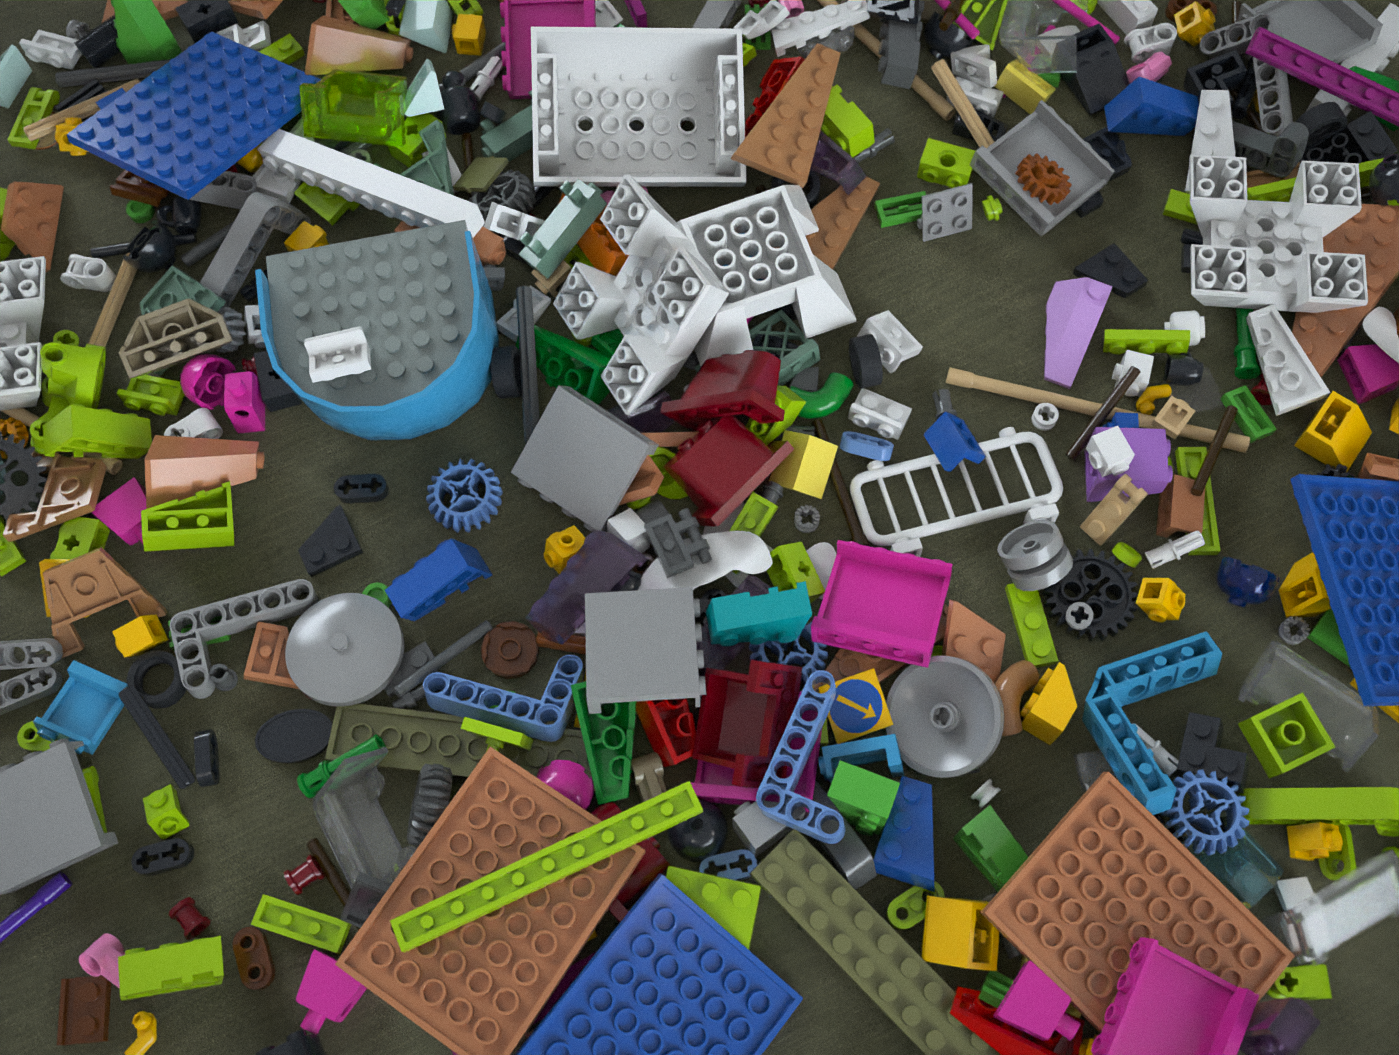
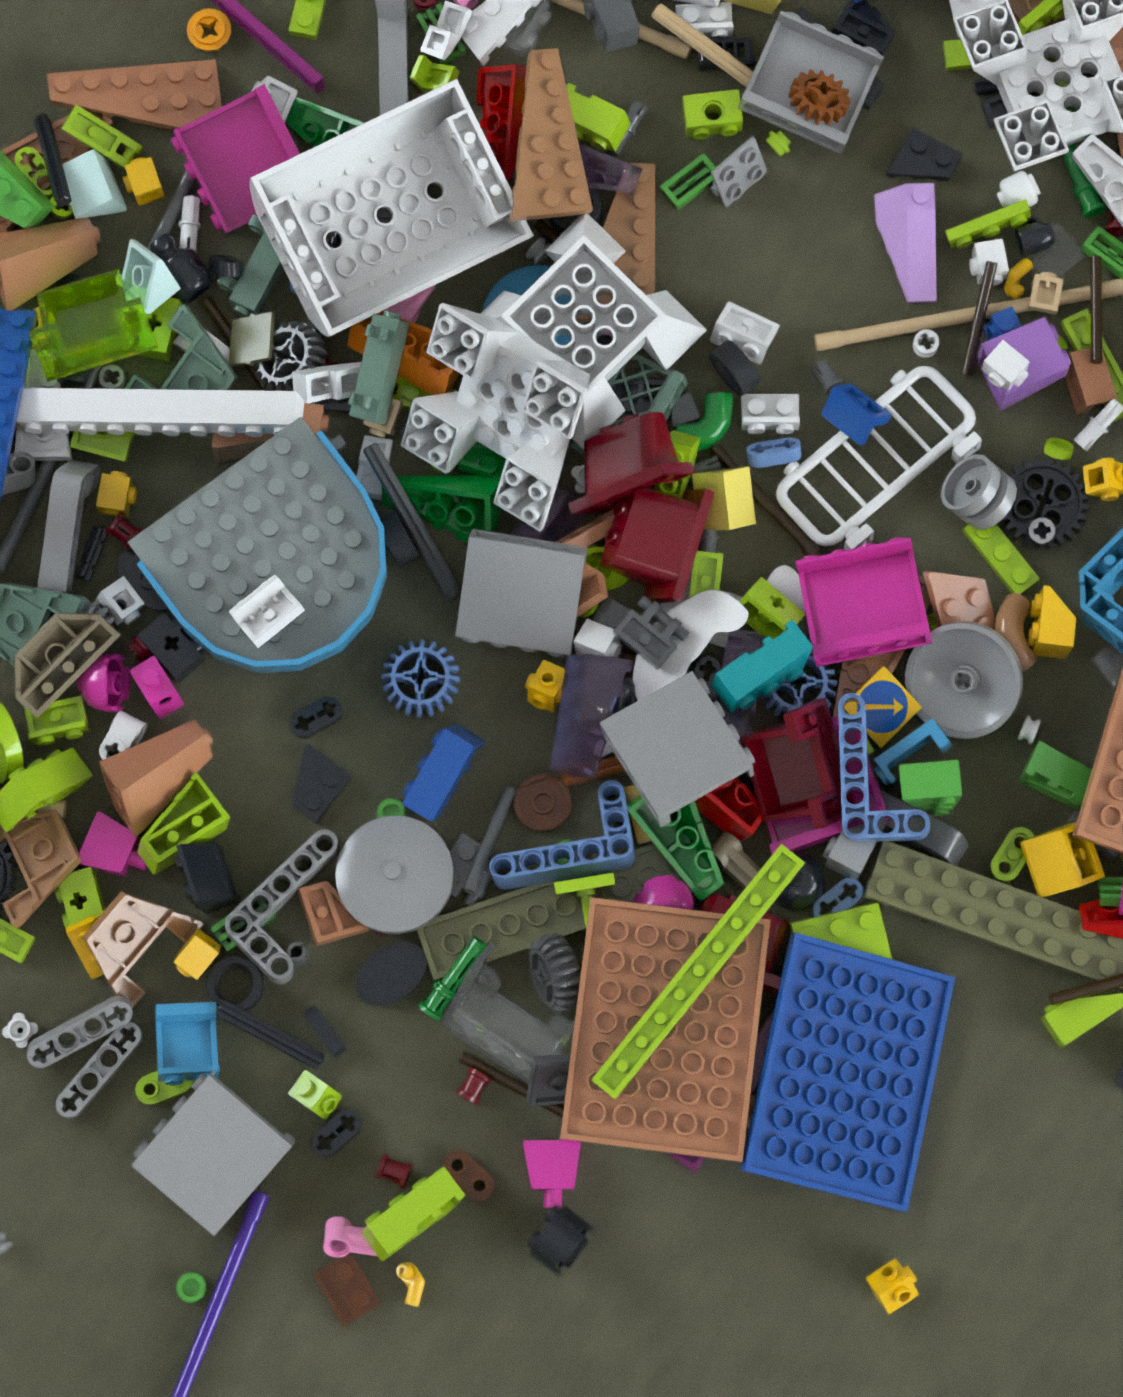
camera: 25 degrees left, 10 degrees up
(181, 569) = (207, 876): none -> black slope
(301, 924) = (494, 1127): lime plate -> none
(805, 511) = (746, 544): light grey bush -> none
(907, 838) = (983, 804): blue wedge -> none
(1113, 510) = (1029, 415): tan plate -> none

